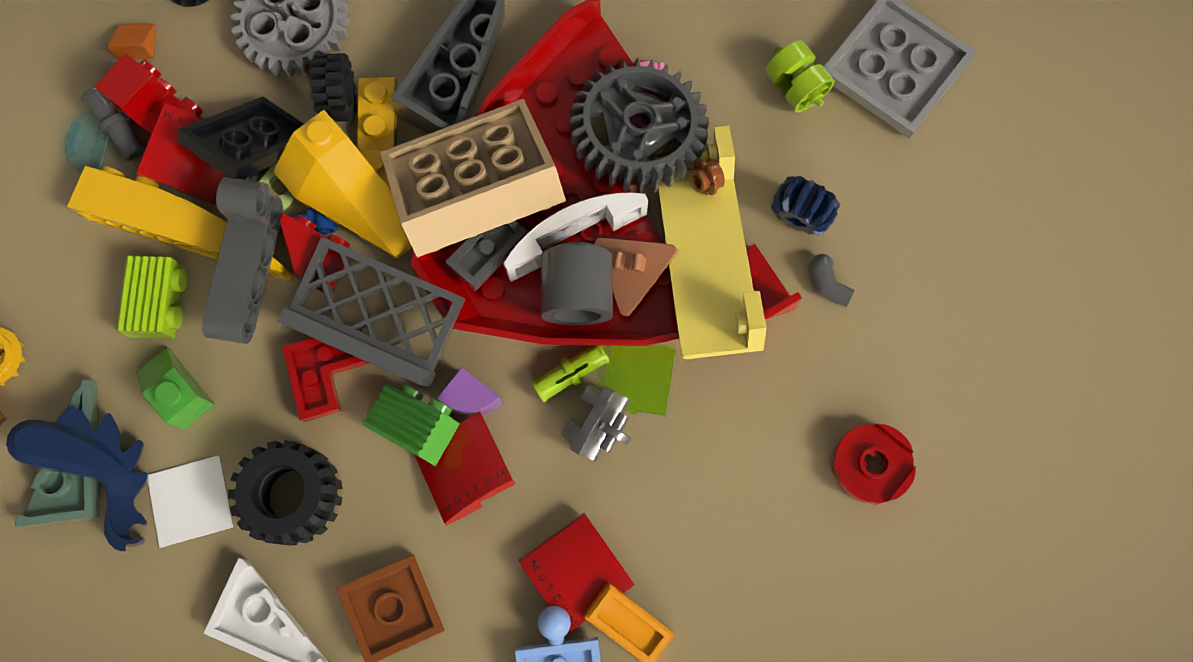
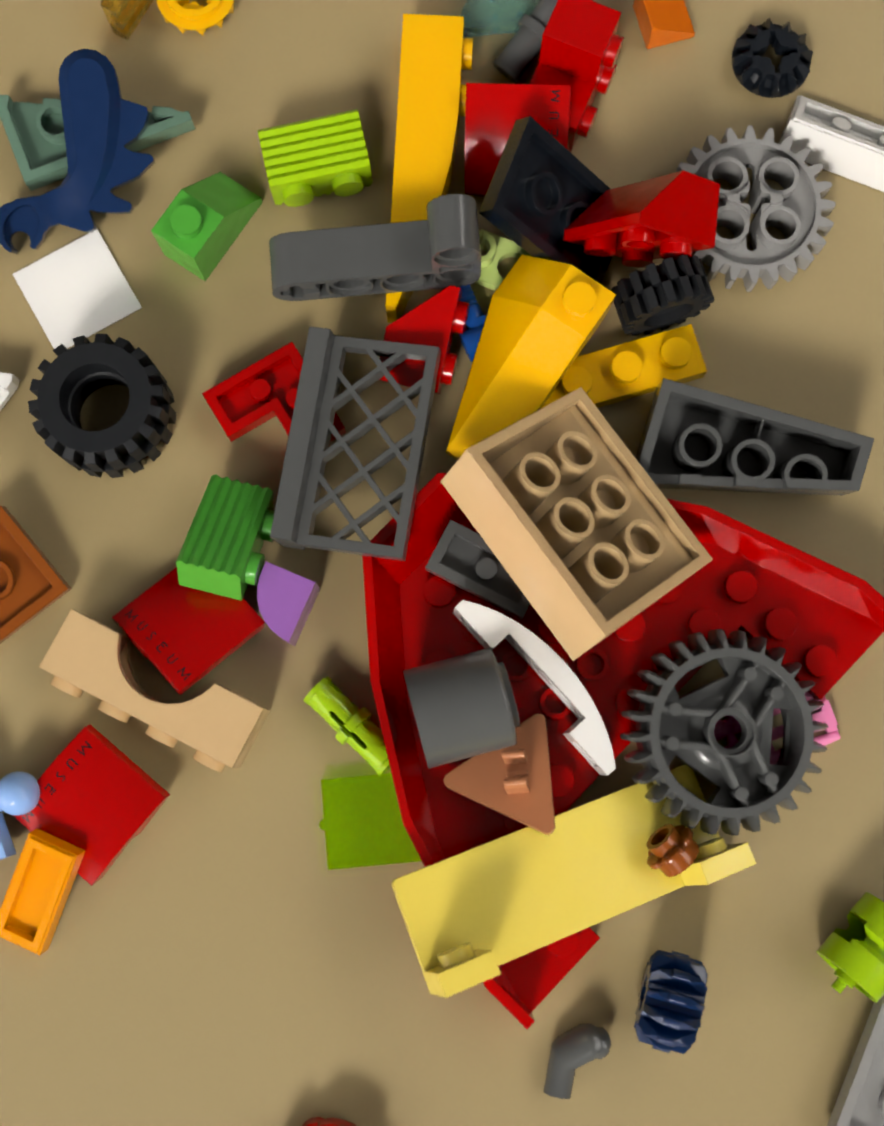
camera: 70 degrees right, 5 degrees up
(278, 78) = (650, 220): none -> red slope
(472, 545) = (98, 661): none -> tan arch
(602, 425) = (286, 792): flat silver hips -> none

